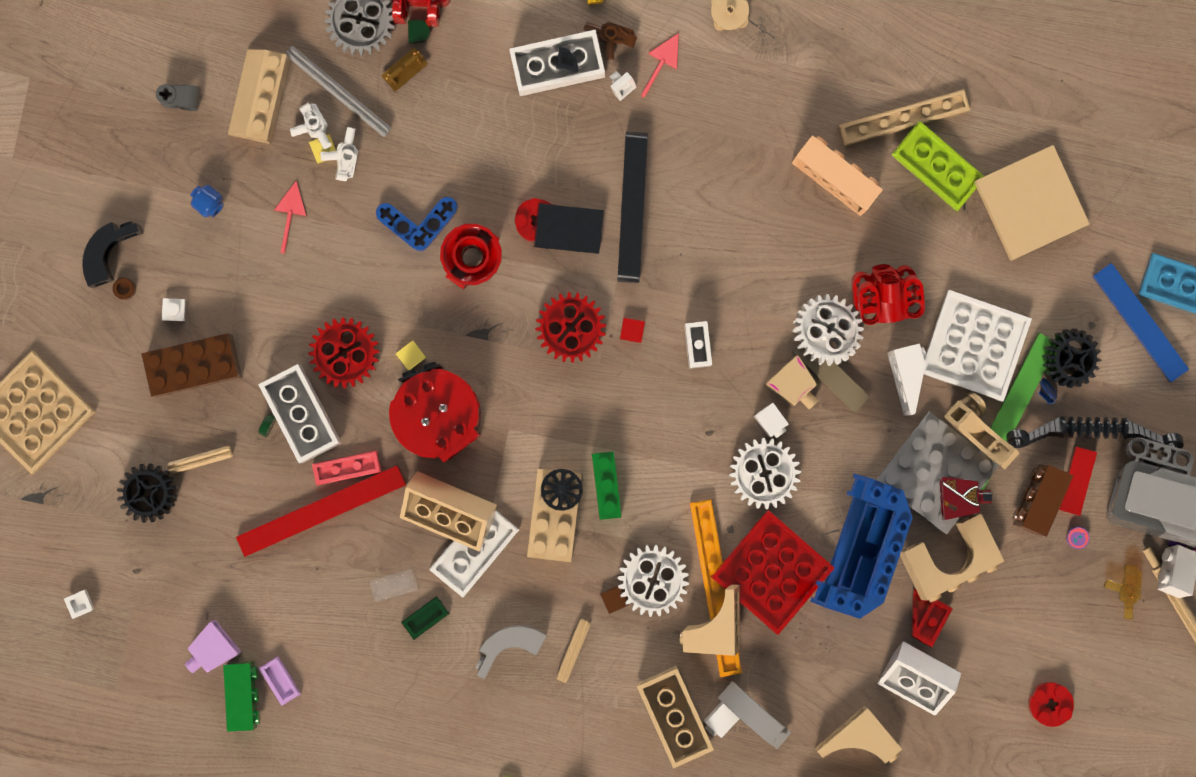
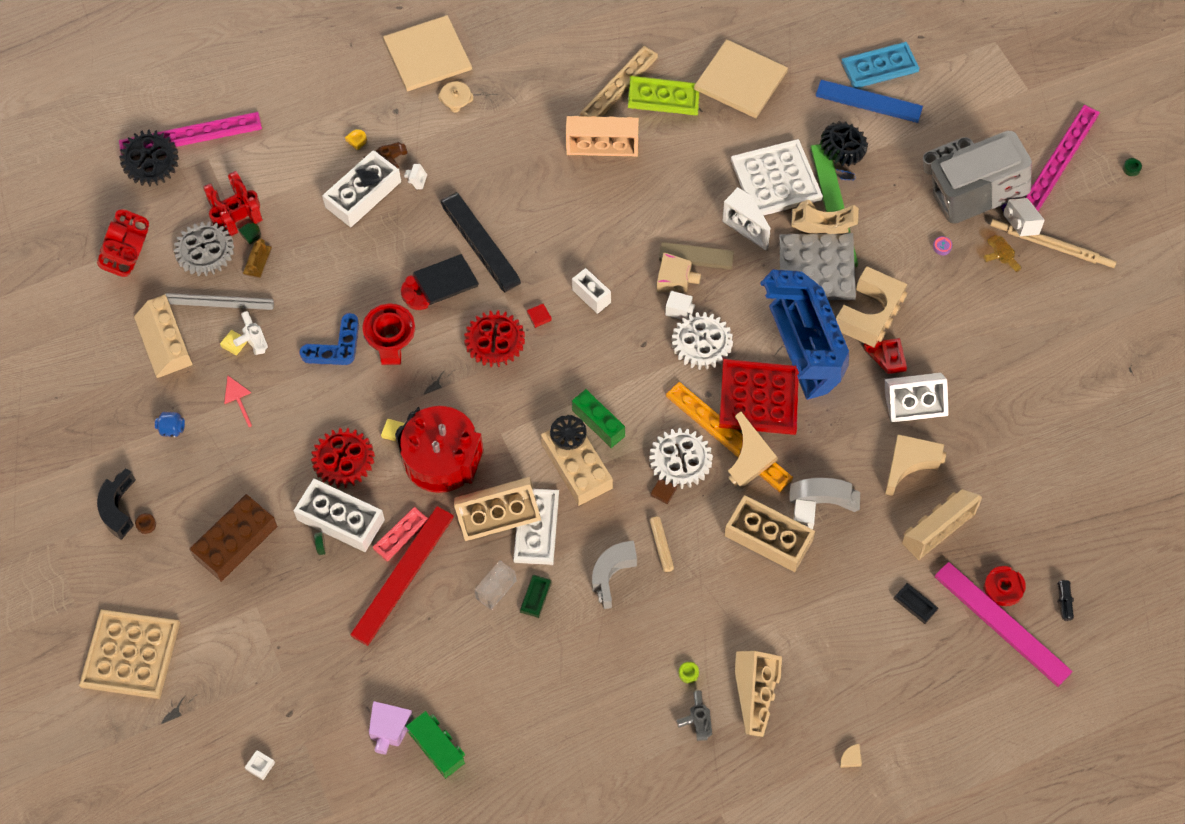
camera: 25 degrees left, 25 degrees down
(151, 501) = (272, 656): black gear -> none
(174, 310) = (194, 513): white plate -> none
(183, 96) = (103, 372): dark grey piece -> none
(200, 459) = (284, 601): tan axle -> none
(280, 680) = (458, 715): lavender tile -> none
(314, 124) = (215, 329): white piece -> none
(667, 54) = (433, 144): coral piece -> none
(836, 313) = (671, 228): white gear -> none
(887, 294) = (693, 178): red piece -> none
(961, 497) = (844, 263): dark red torso -> none
(1040, 697) = (1017, 345): red plate -> none
(1042, 499) = (898, 232): reddish brown brick -> none
(1058, 427) = (888, 178): black piece -> none
(1081, 467) = (912, 213): red tile -> none

